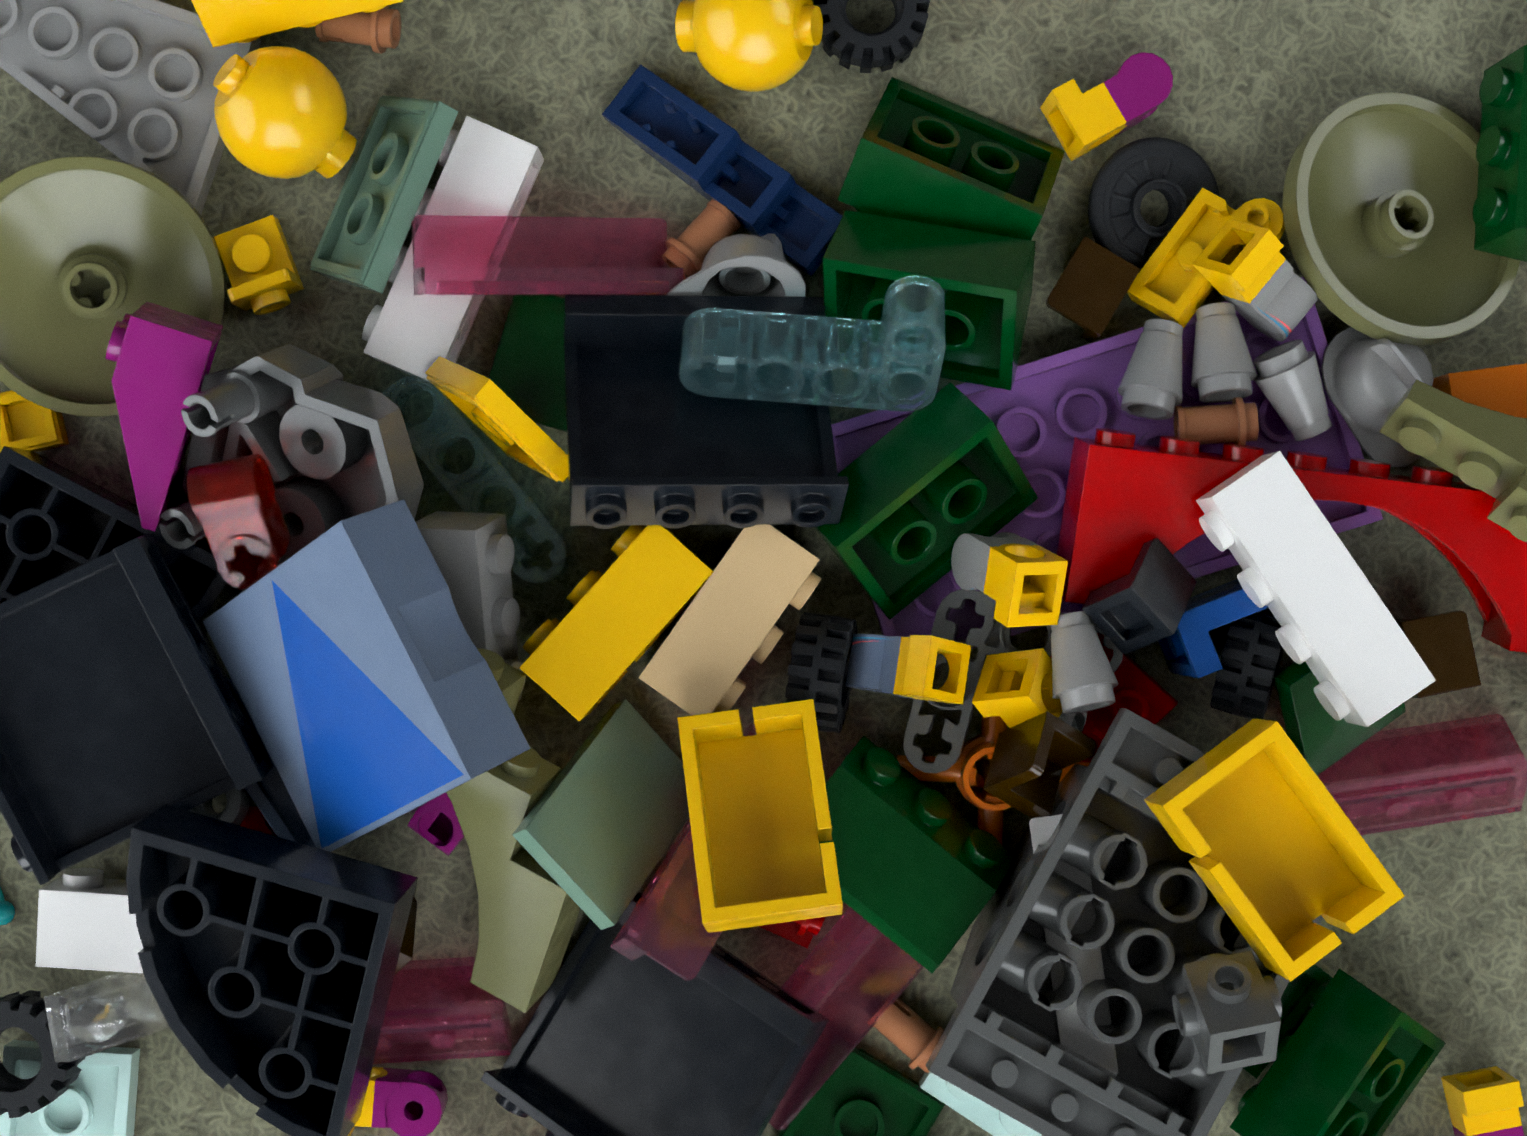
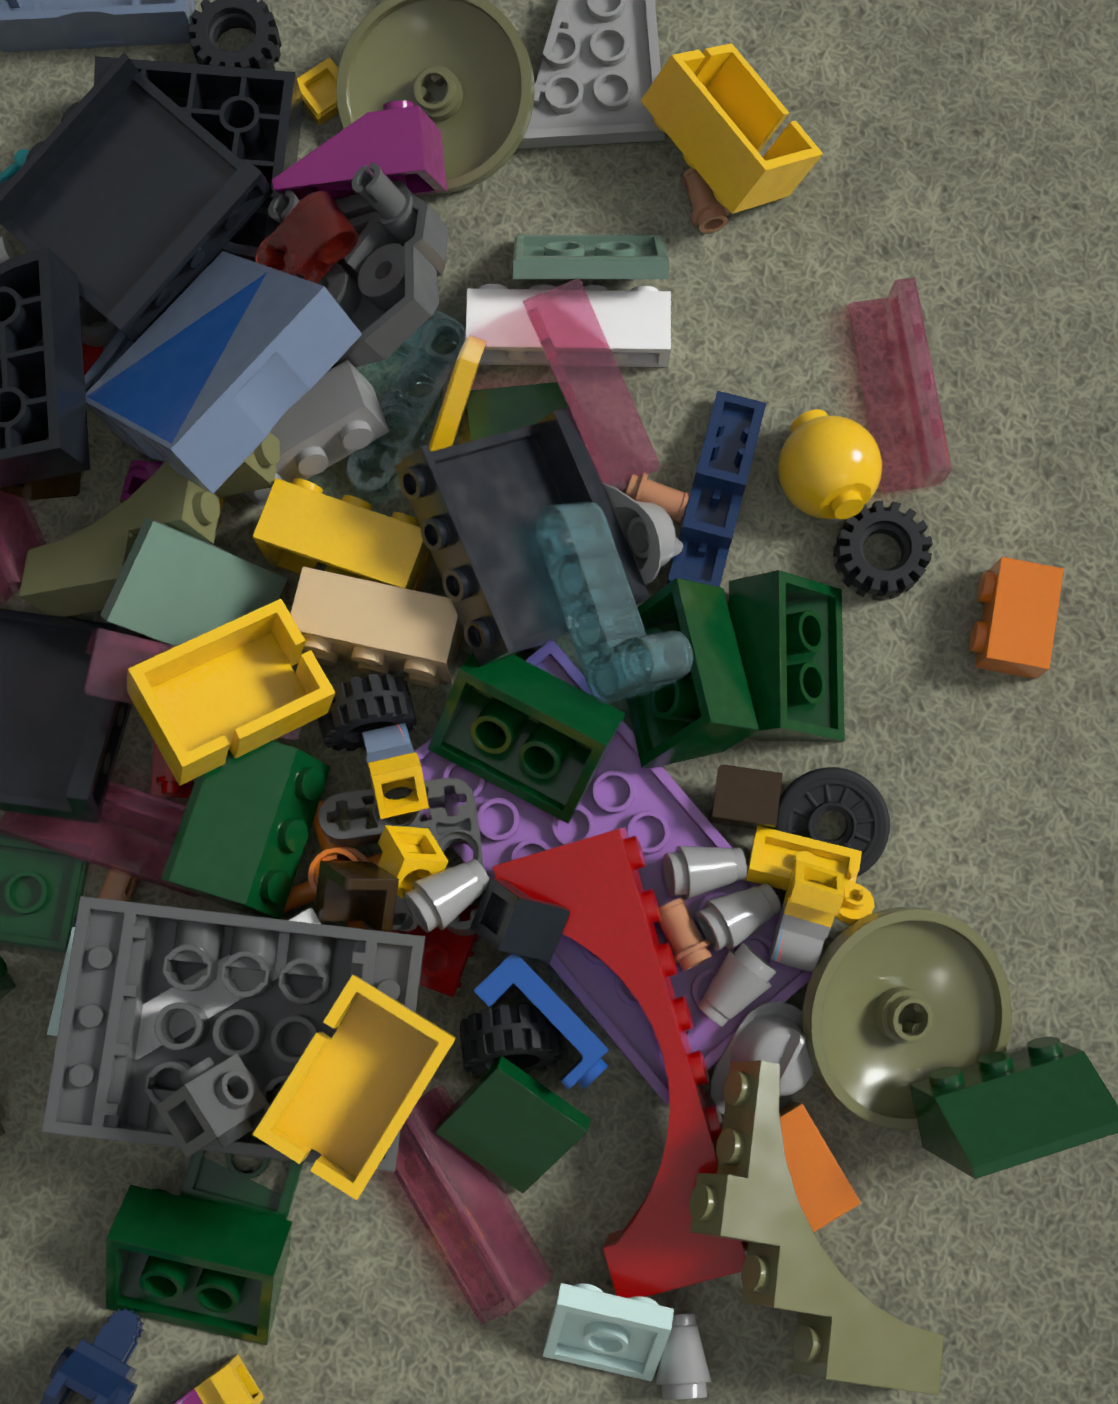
camera: 60 degrees right, 10 degrees down
(259, 266) = (501, 200): yellow bracket -> none
(282, 113) = (615, 167): yellow brick -> none
(1013, 572) = (494, 818): yellow leg -> none
(1109, 108) = (892, 757): leg -> none
(1314, 591) = (577, 1046): white brick -> none
(1446, 649) = (576, 1192): dark brown panel -> none

